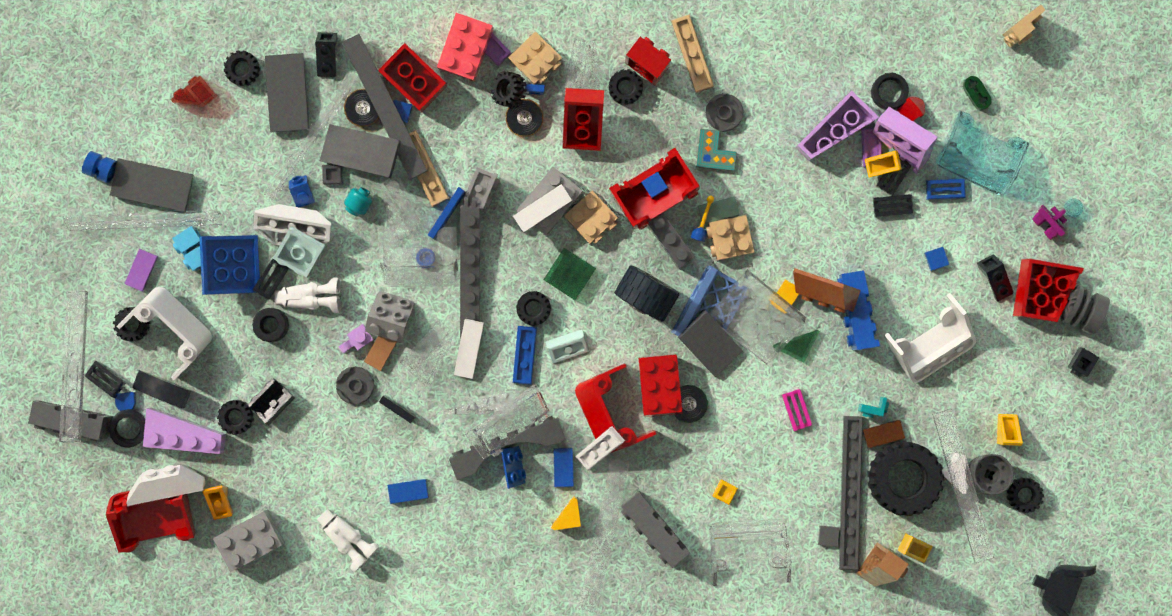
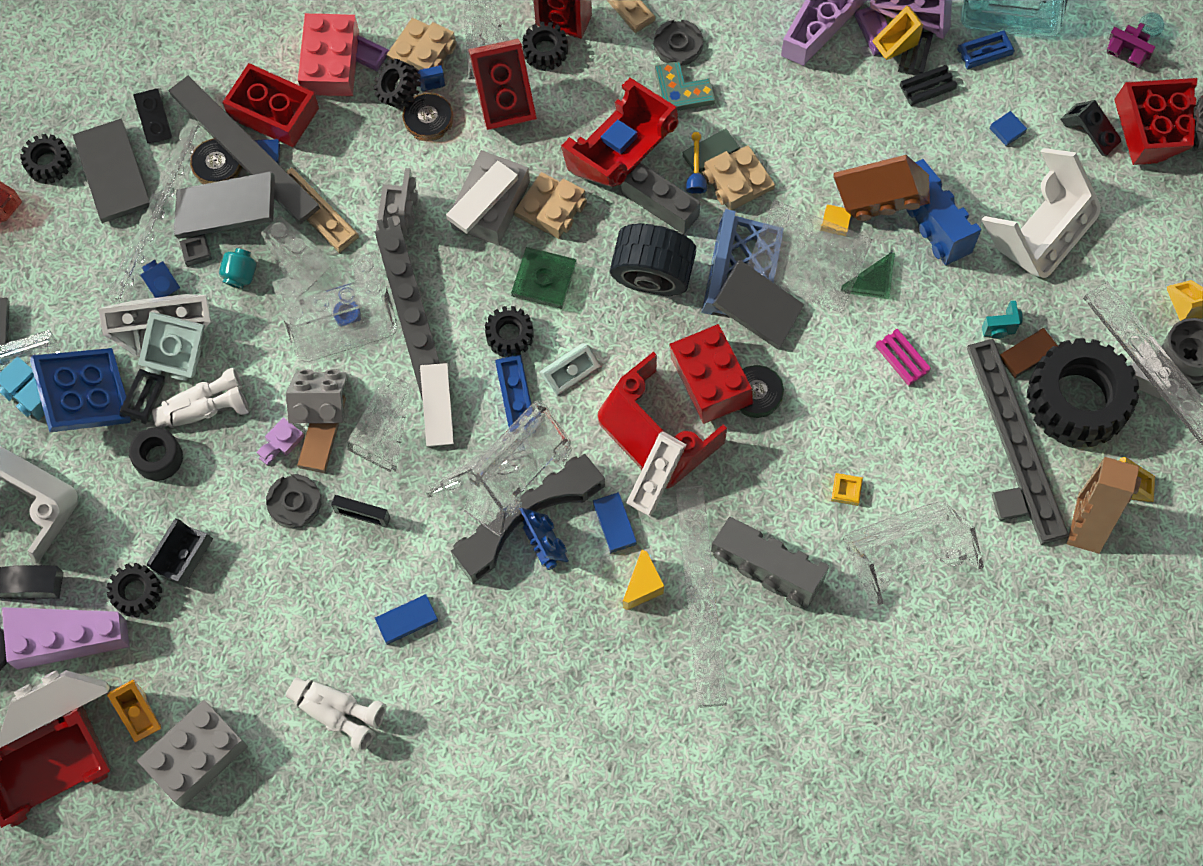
camera: 15 degrees left, 20 degrees down
(447, 212) = (360, 245): blue tile -> none

